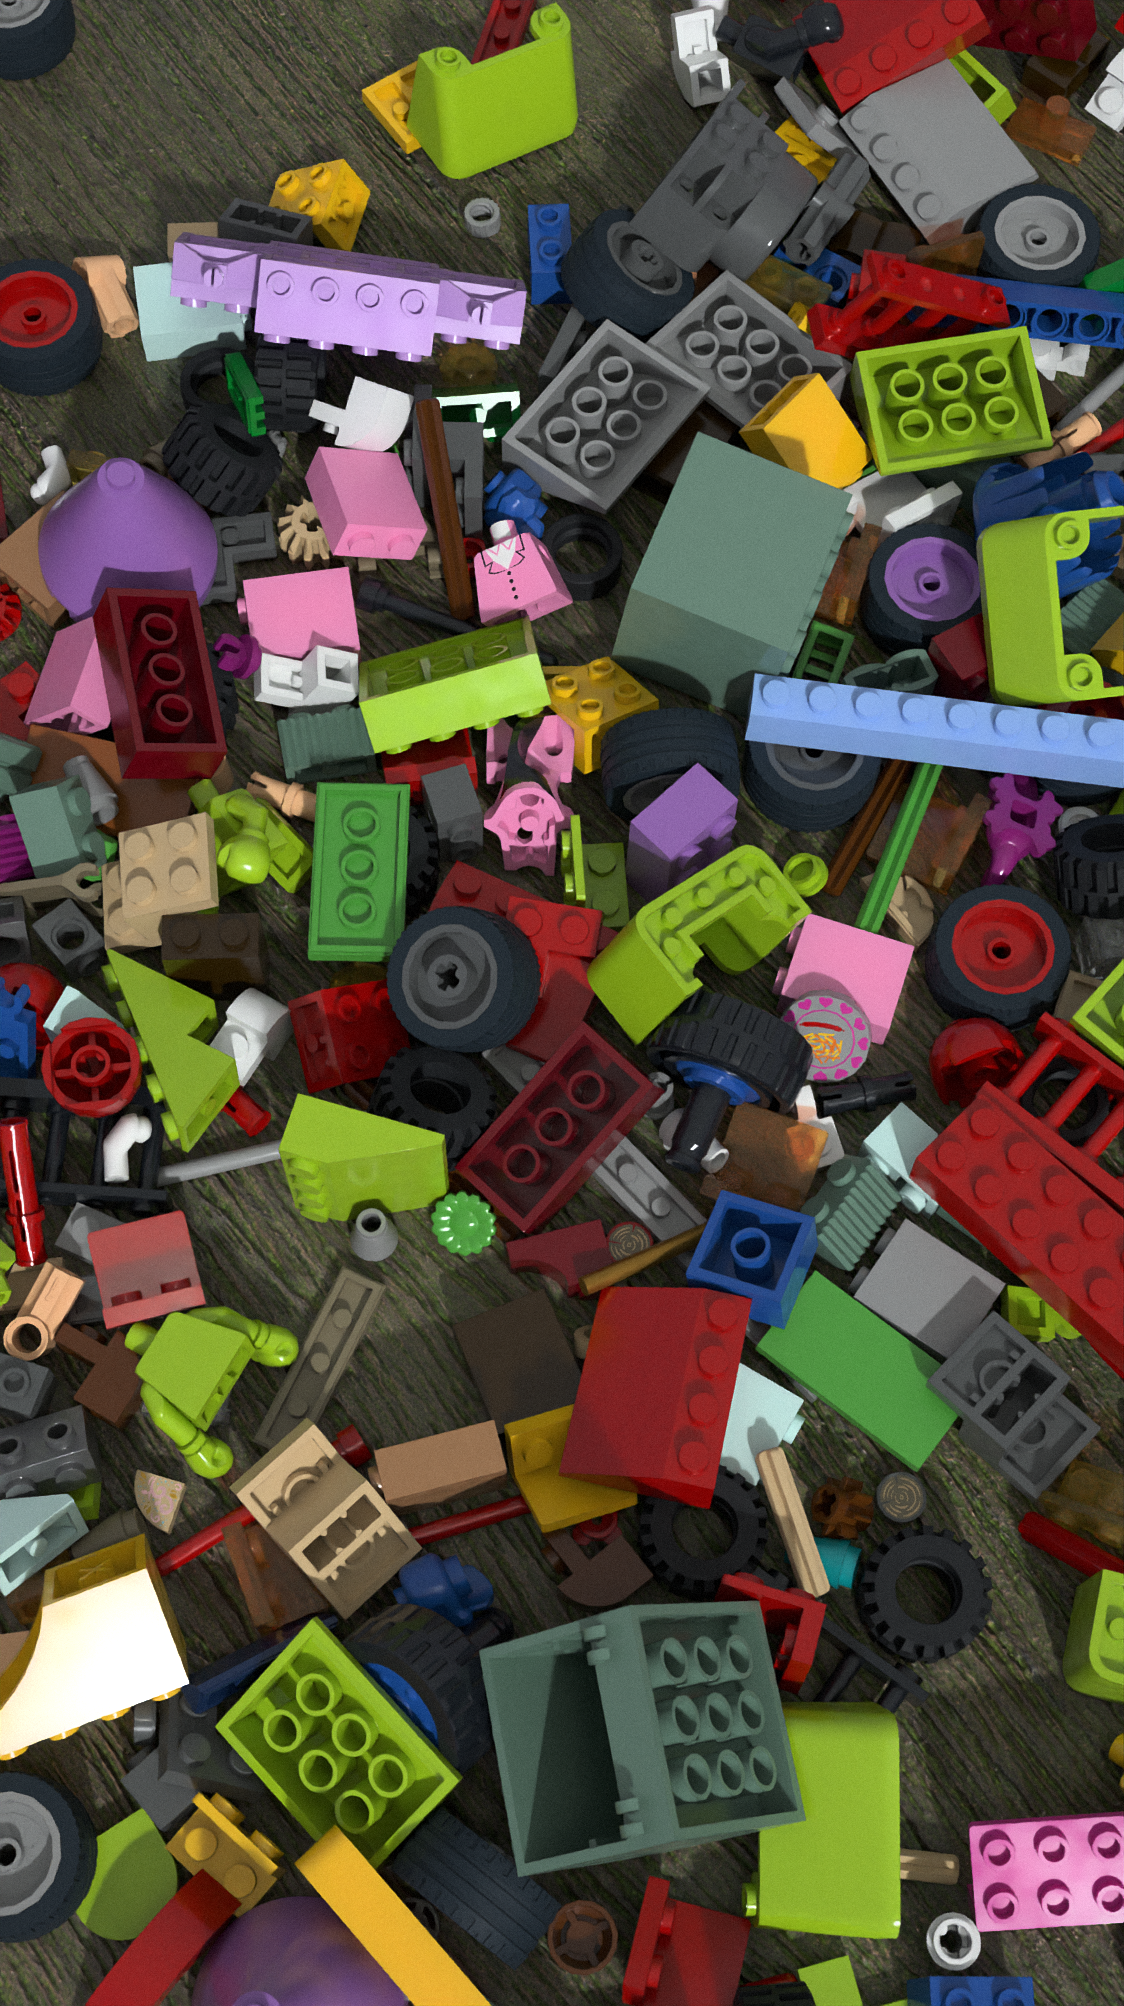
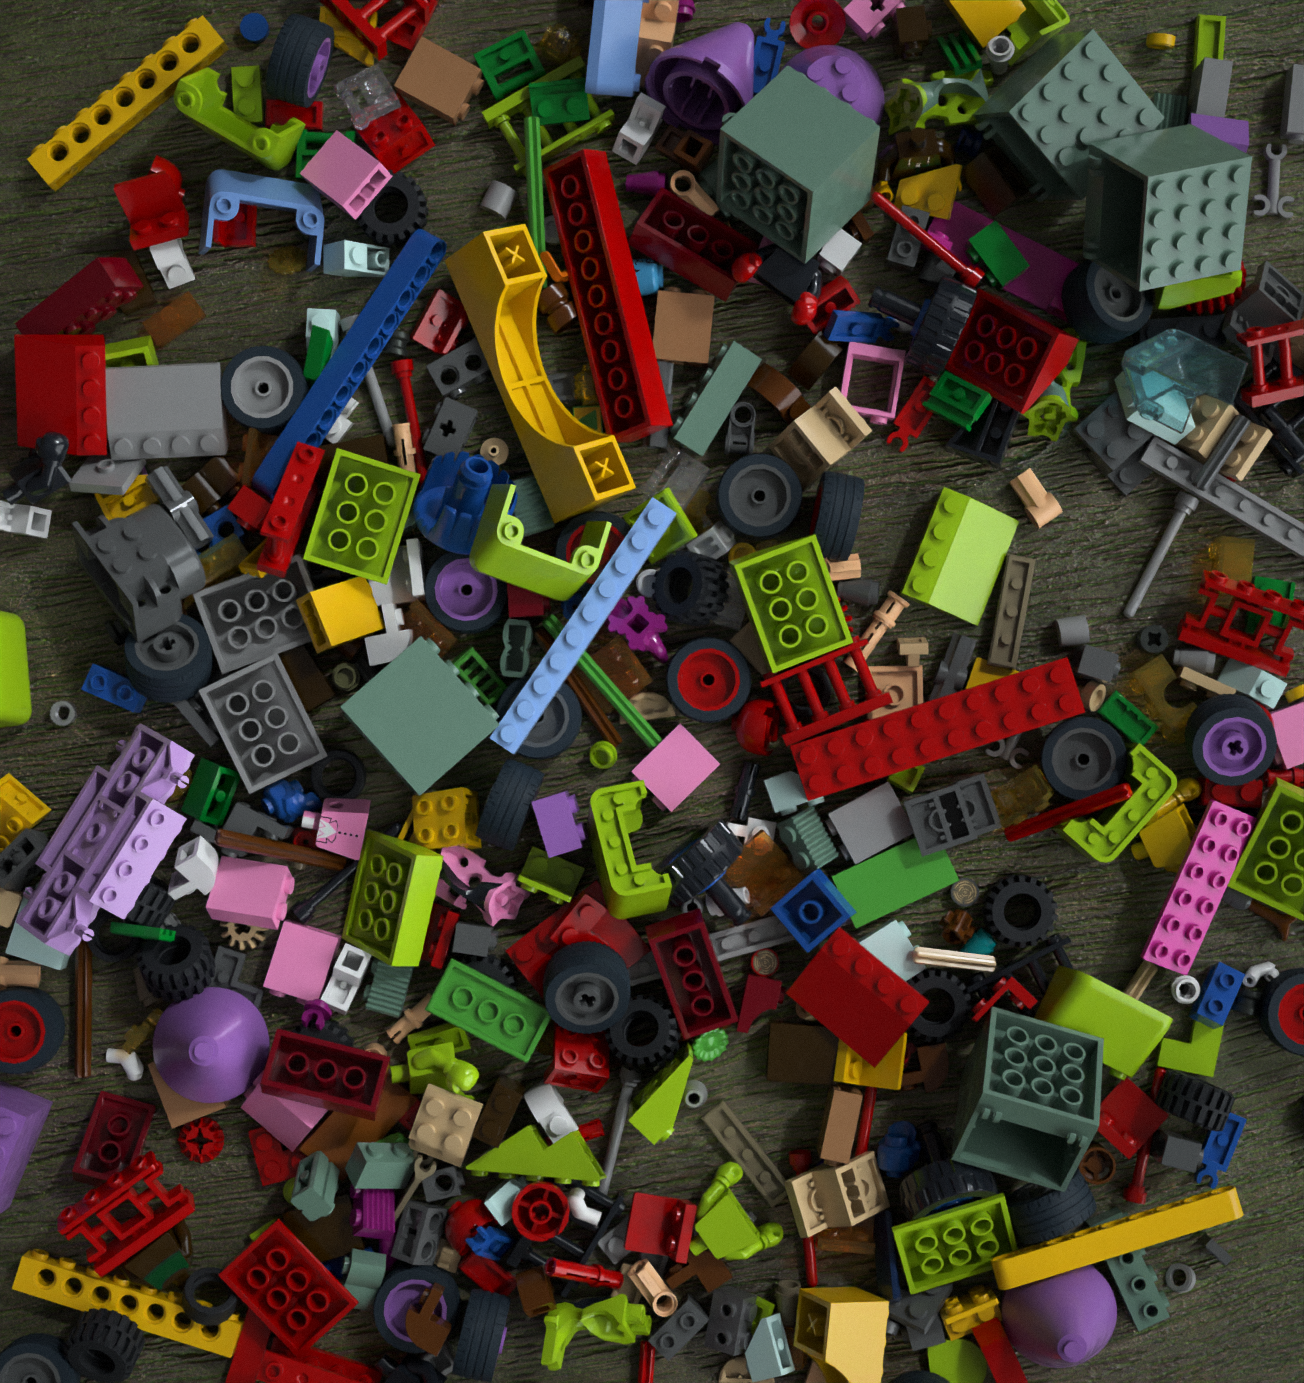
camera: 60 degrees left, 20 degrees up
(97, 399) = (83, 1010): none -> reddish brown axle
(101, 795) = (362, 1132): light grey cone -> none
(158, 1499) = (777, 1268): tan tile -> none
(641, 1260) = (782, 963): pearl gold bar -> none
(835, 1031) = (705, 799): light grey tile -> none

